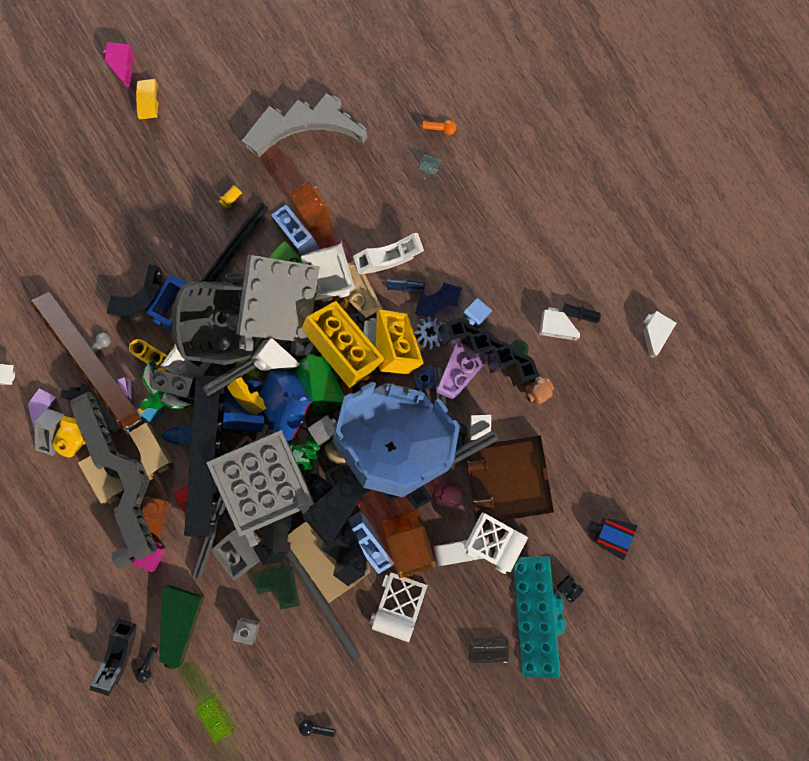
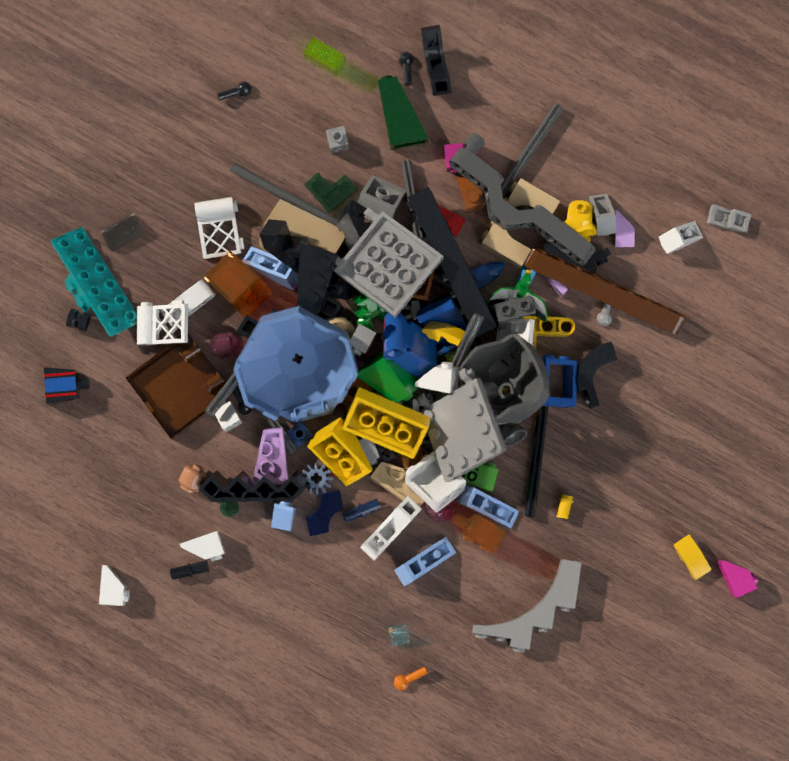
camera: 150 degrees right, 0 degrees up
(73, 530) = (531, 148): none -> dark grey axle
(375, 213) = (425, 561): none -> light blue slope

